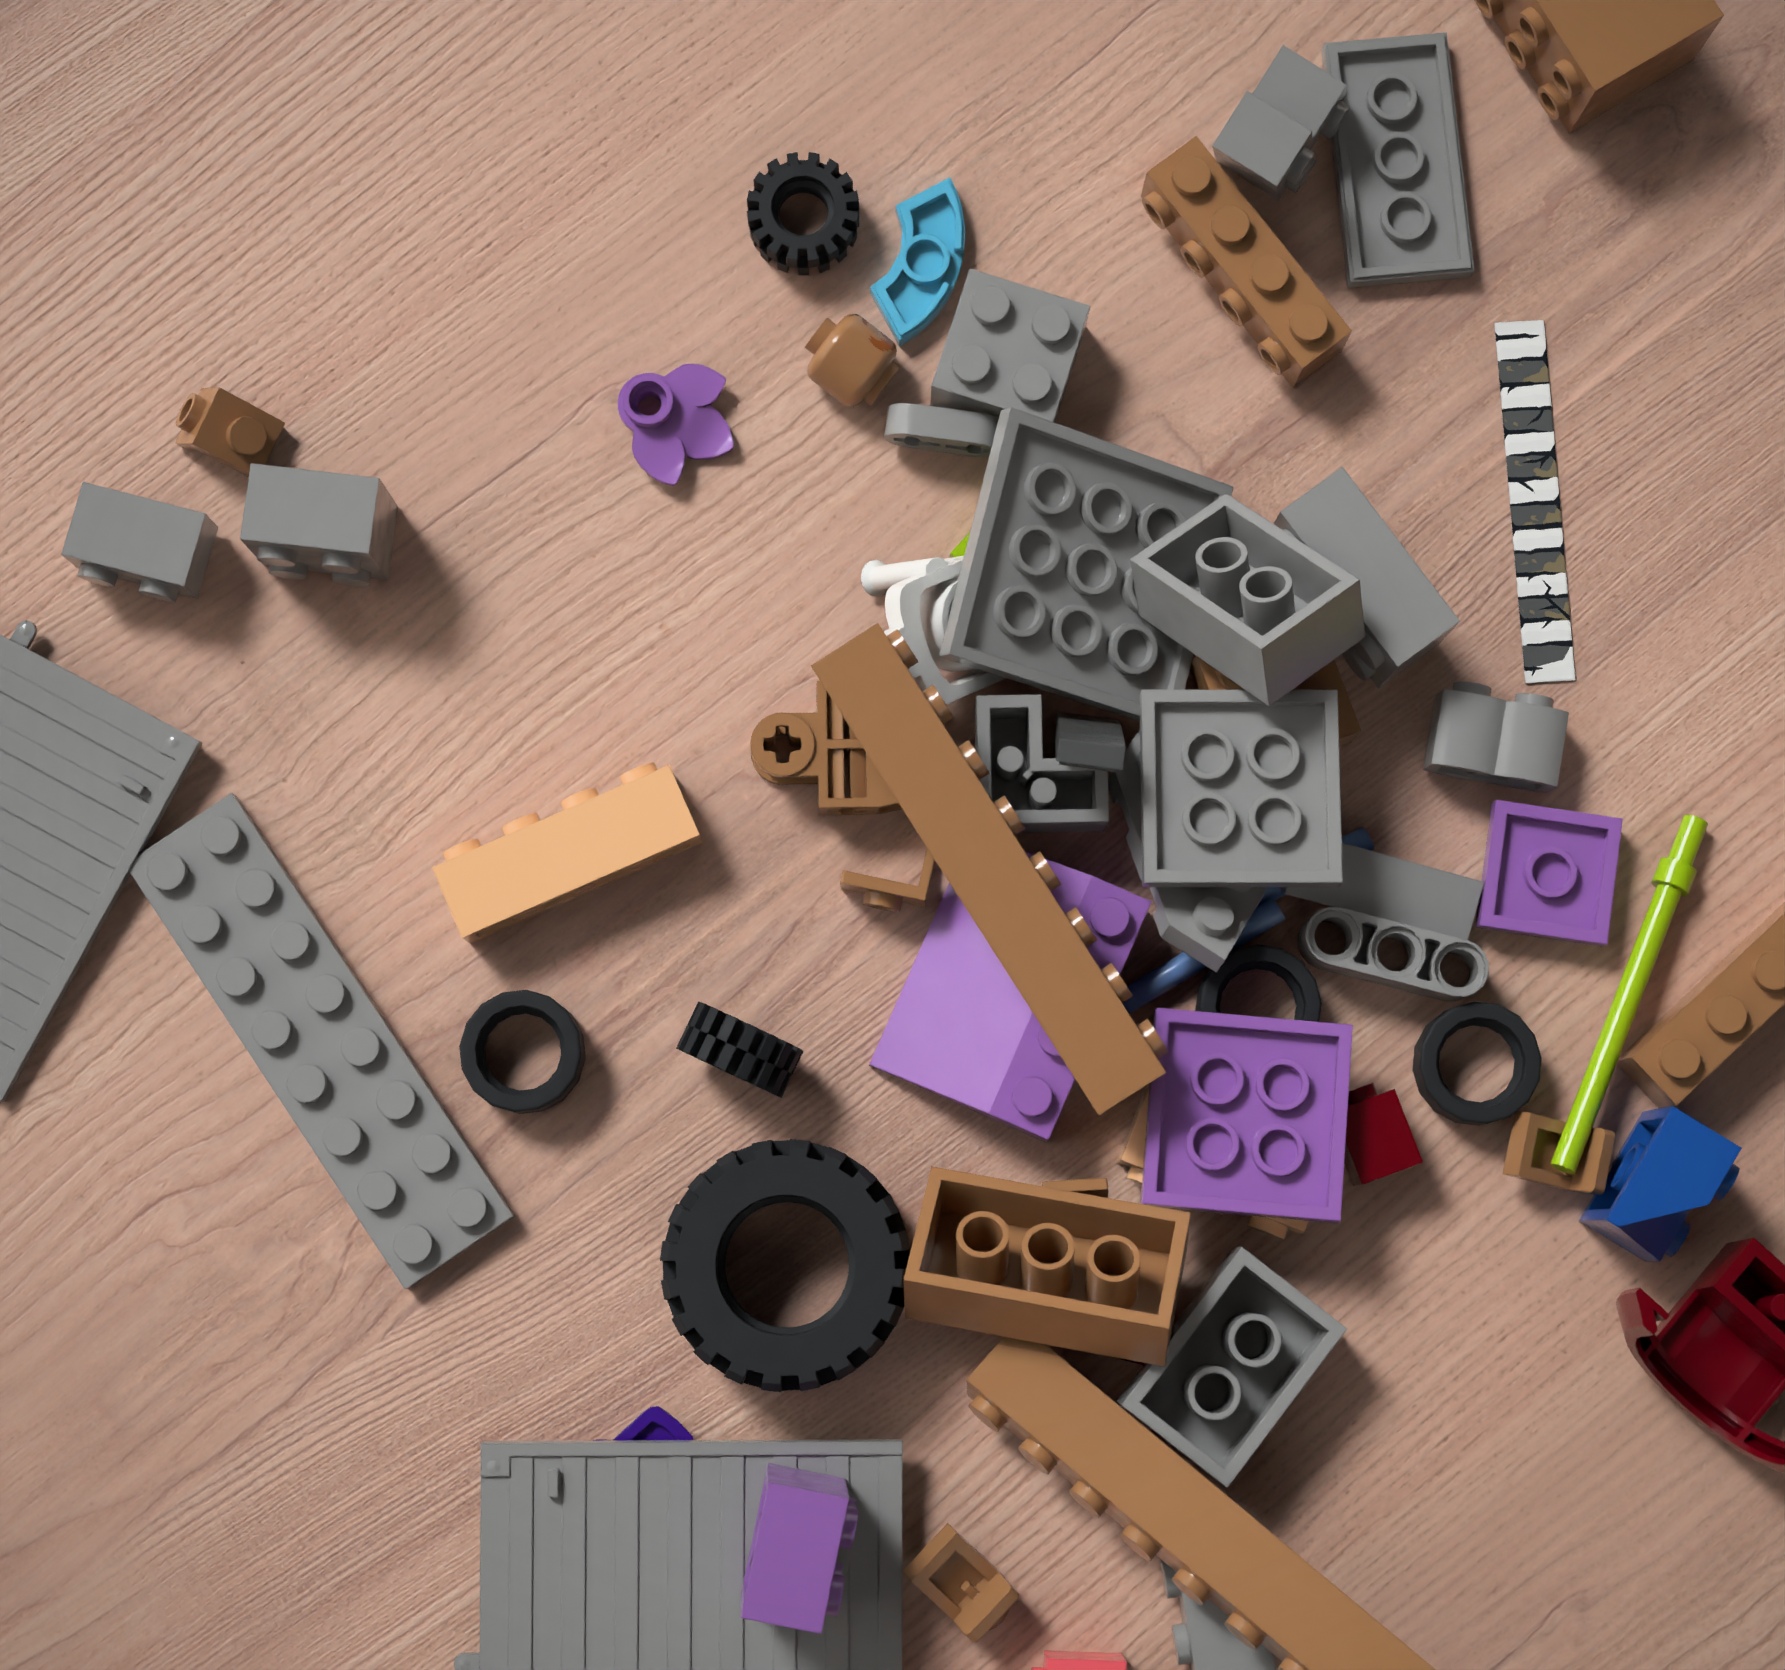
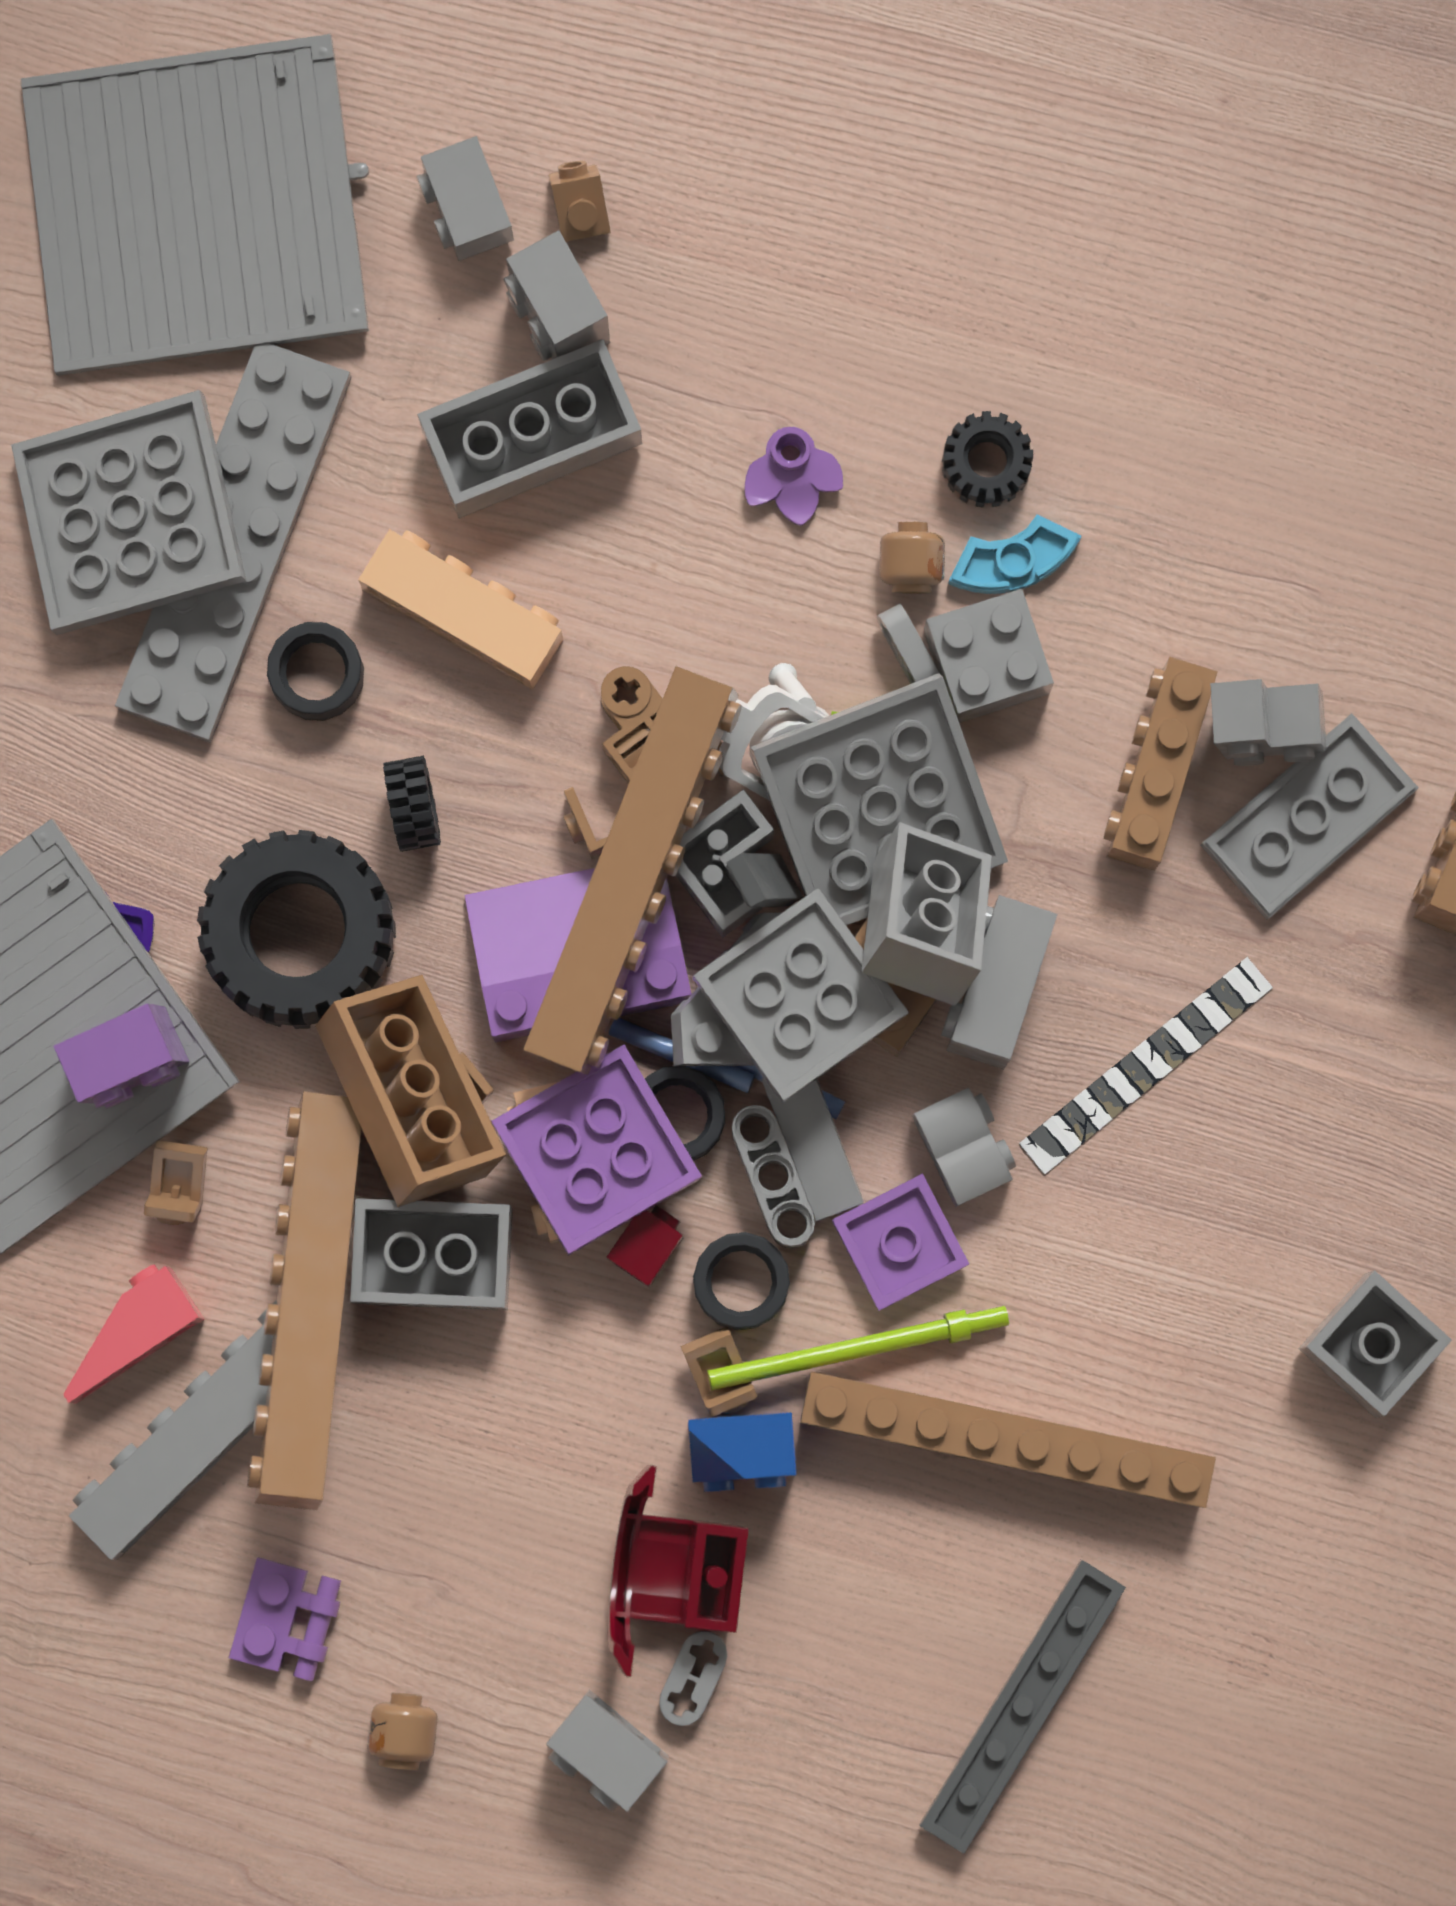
camera: 55 degrees right, 0 degrees up
(211, 1129) = (128, 512): none -> light grey plate
(432, 647) = (530, 428): none -> light grey brick

